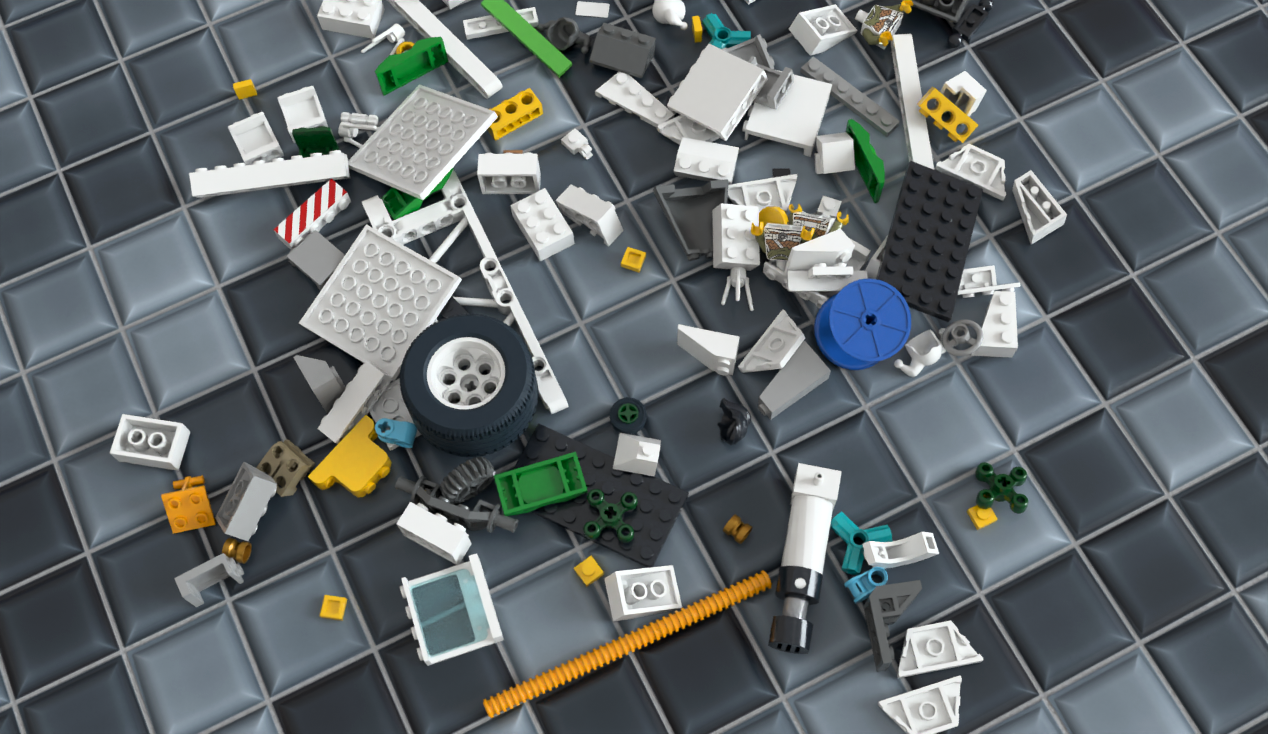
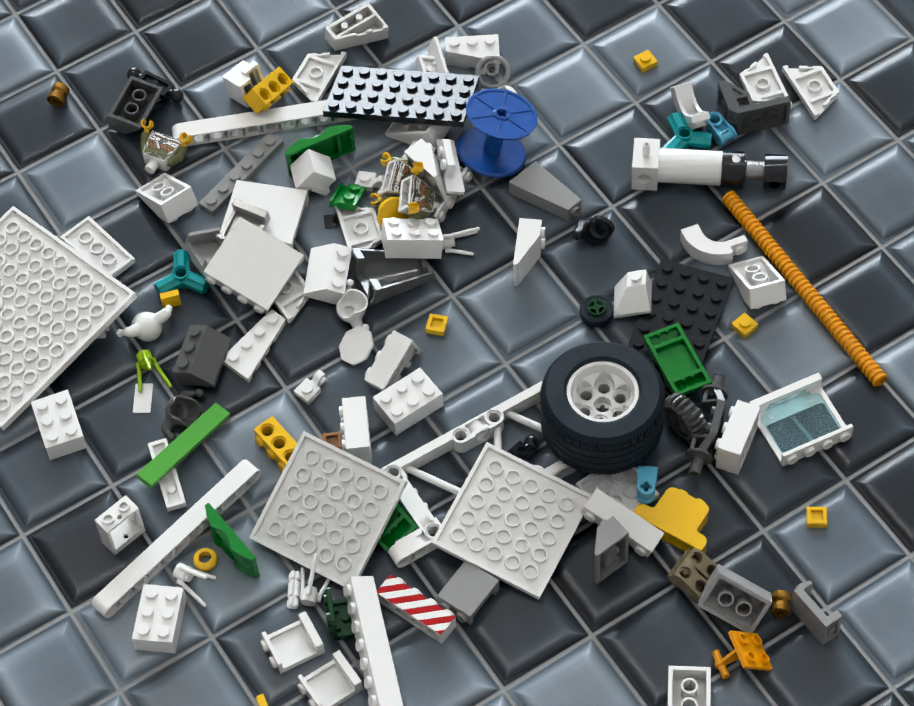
camera: 95 degrees left, 10 degrees down
(606, 508) = (697, 305): dark green gear -> none
(616, 183) = (356, 345): none -> white piece
(629, 8) = (146, 362): none -> lime plant
(659, 176) = (352, 306): none -> white piece
(698, 535) = (711, 251): none -> white arch
(737, 529) = (689, 218): pearl gold wheel -> none
(774, 346) = (511, 202): white wing -> none
(805, 186) = (347, 196): none -> green plate
(1001, 488) = (622, 45): dark green gear -> none

